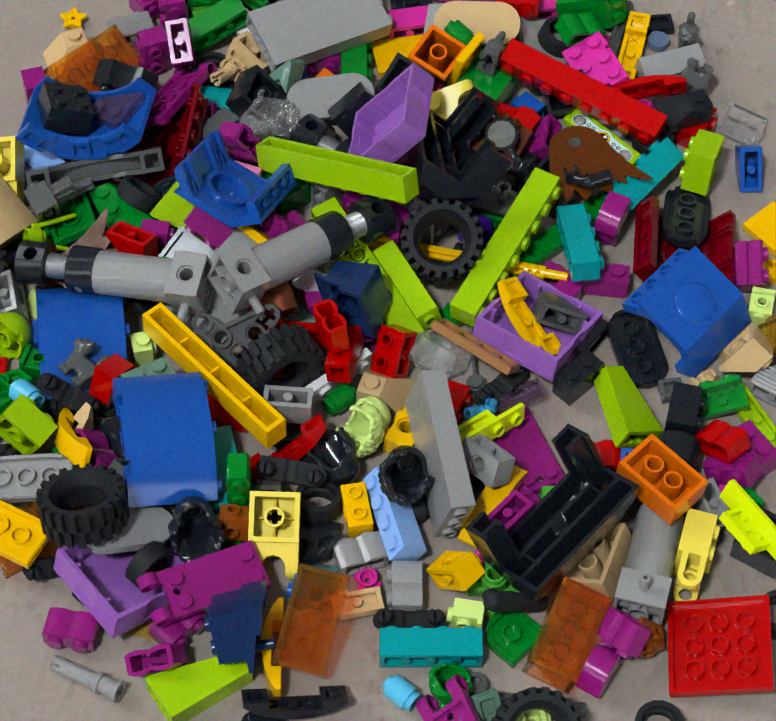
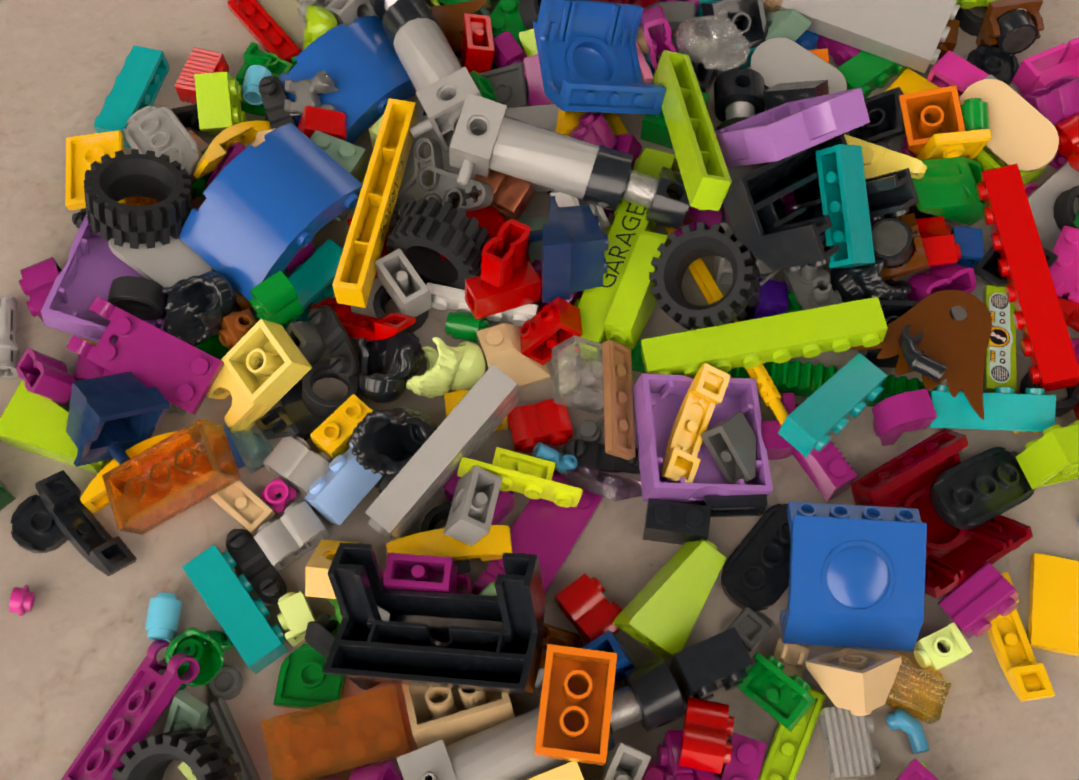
camera: 55 degrees right, 10 degrees up
(458, 128) = (846, 202): none -> teal brick
(491, 54) = (981, 160): dark grey animal -> none

